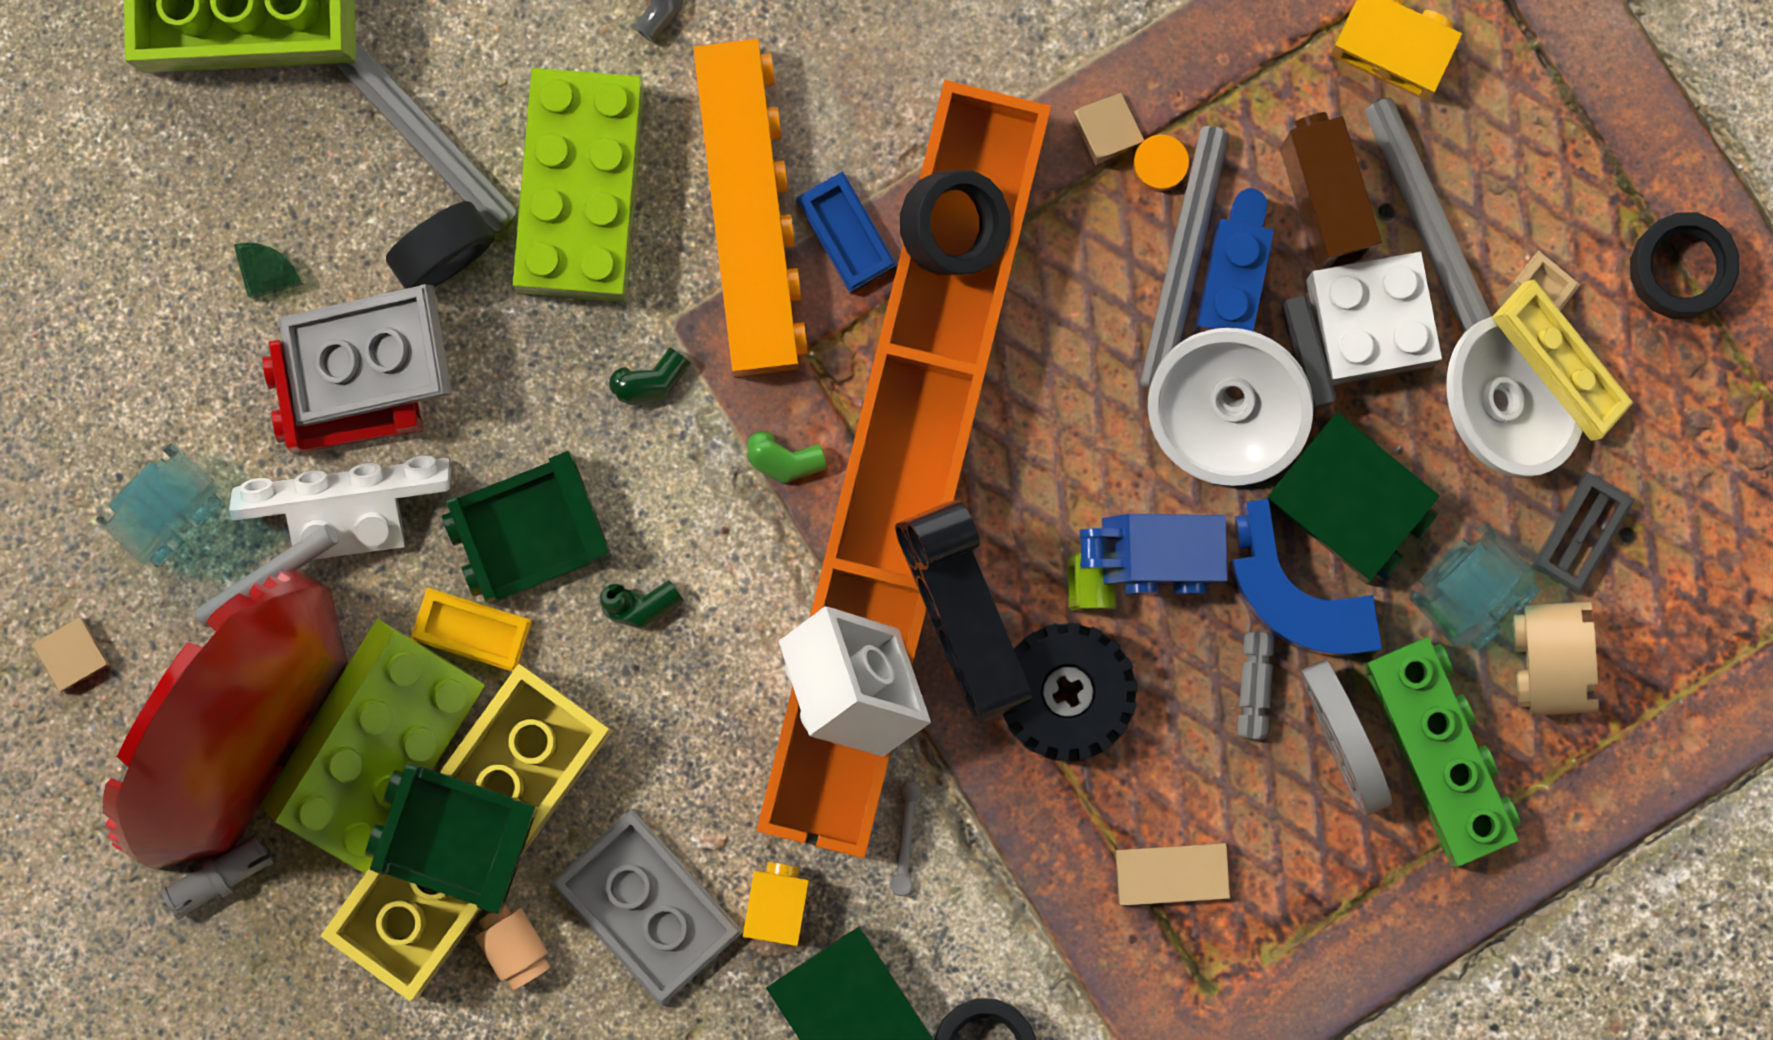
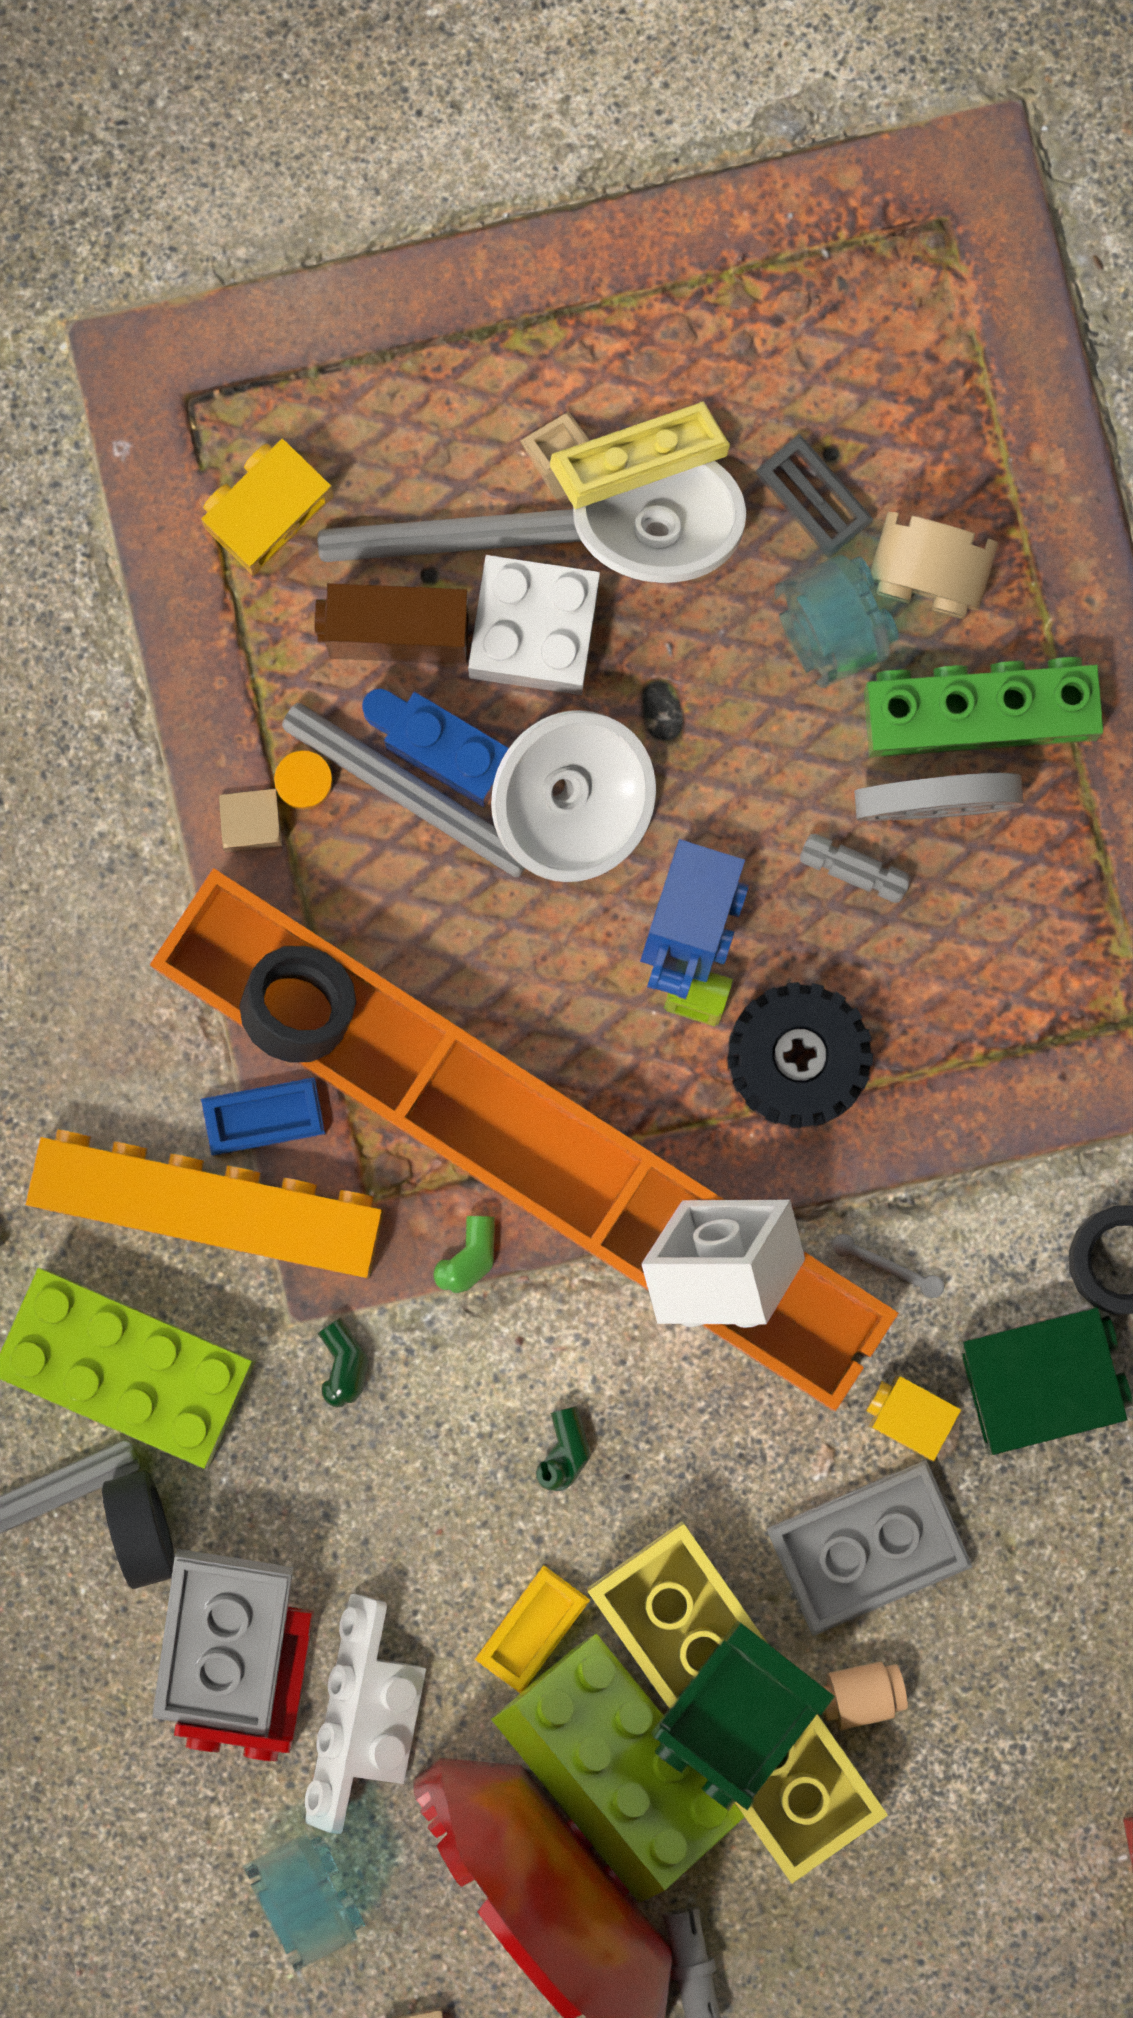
camera: 75 degrees left, 0 degrees up
(265, 269) = (96, 1715): clear green tile -> none
(290, 559) = (408, 1817): light grey bar -> none
(526, 530) = (451, 1539): dark green panel -> none
(943, 564) = (687, 1130): black beam -> none
(1172, 874) = (1012, 1015): tan tile -> none
(1289, 614) = (813, 794): blue arch -> none
(1308, 349) = (541, 700): dark grey tile -> none
(1354, 499) = (705, 707): dark green panel -> none
(1714, 236) = (581, 260): black tyre -> none

